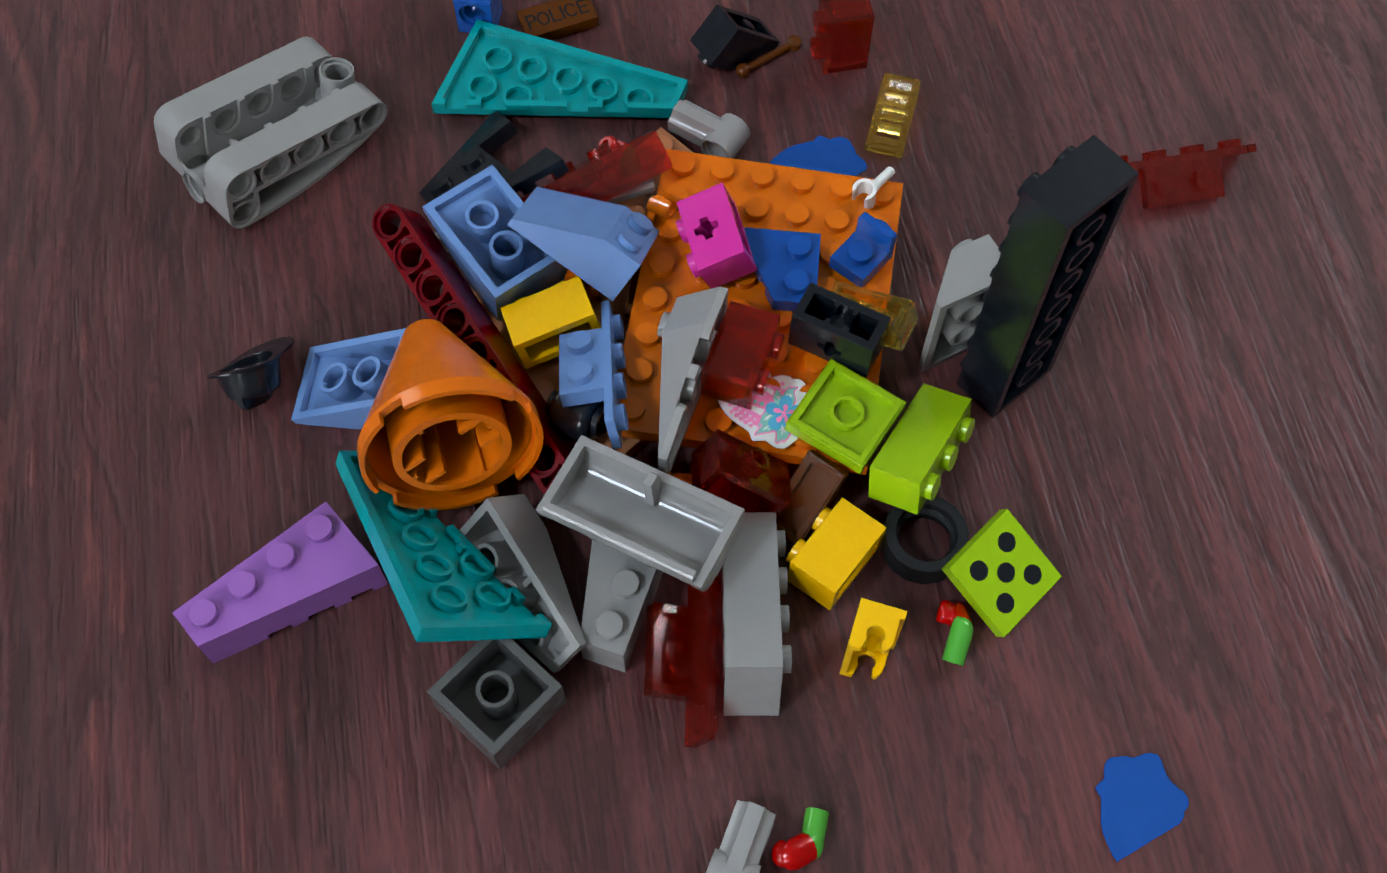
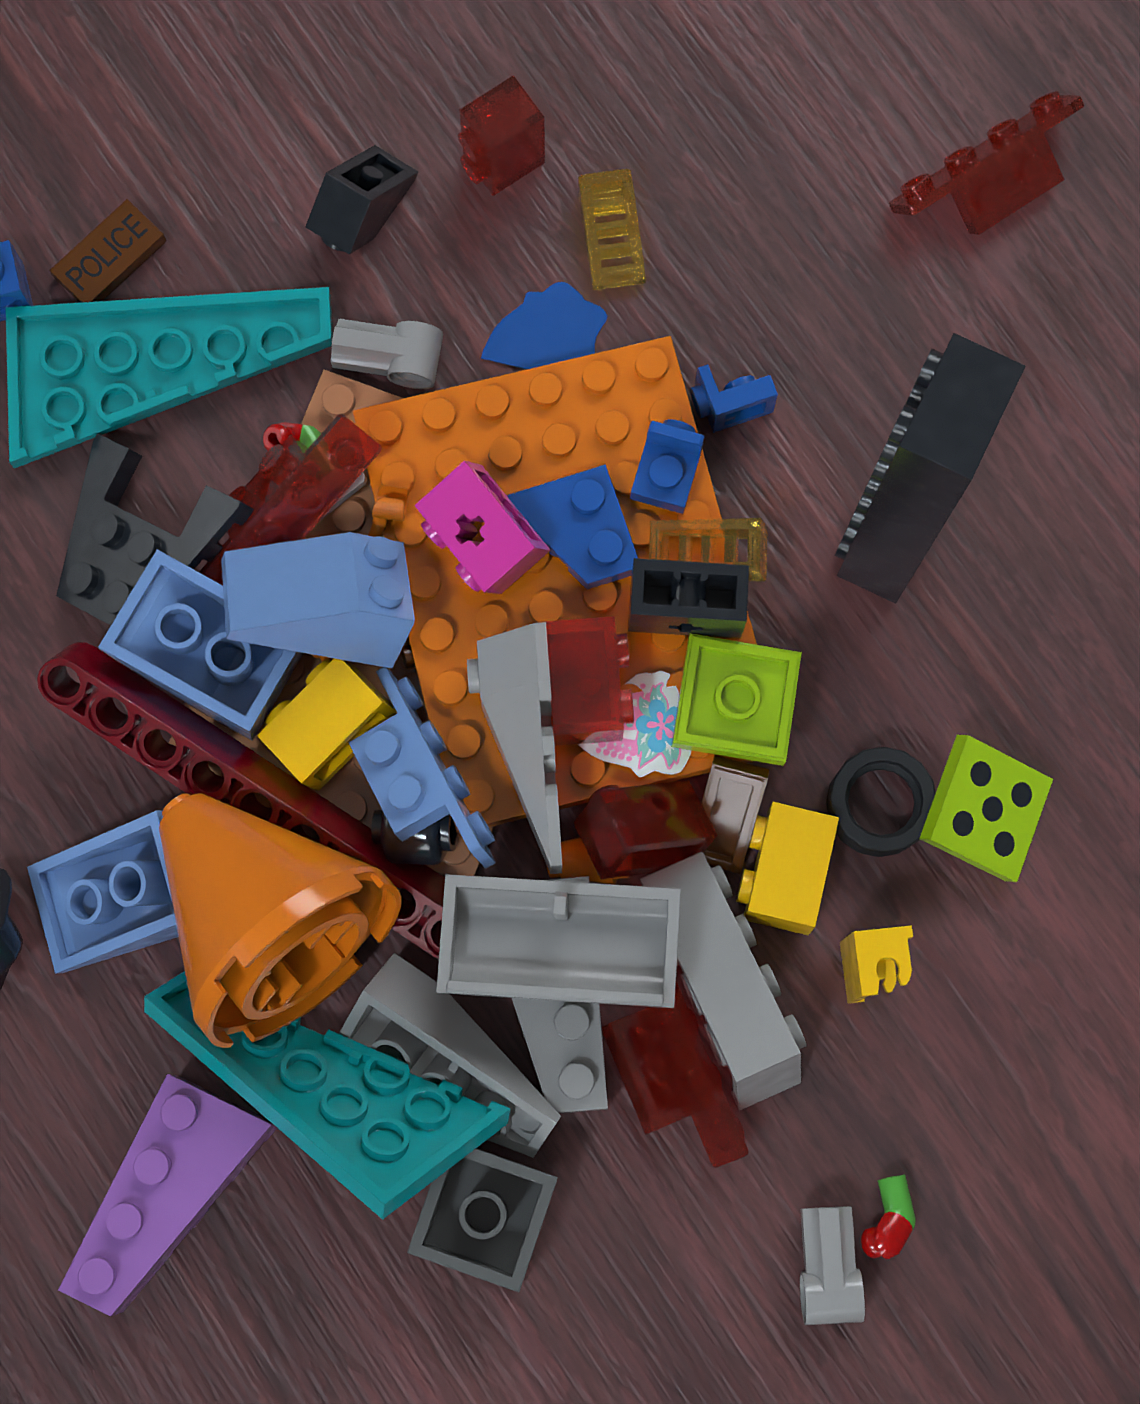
camera: 25 degrees left, 15 degrees up
(793, 44) = (436, 167): reddish brown hinge -> none
(871, 187) = (640, 362): white hand -> none
(921, 449) = (838, 695): lime brick -> none
(928, 245) = (737, 403): none -> blue bracket
(959, 300) = (816, 482): light grey slope -> none
(960, 631) = (965, 896): bright green arm -> none

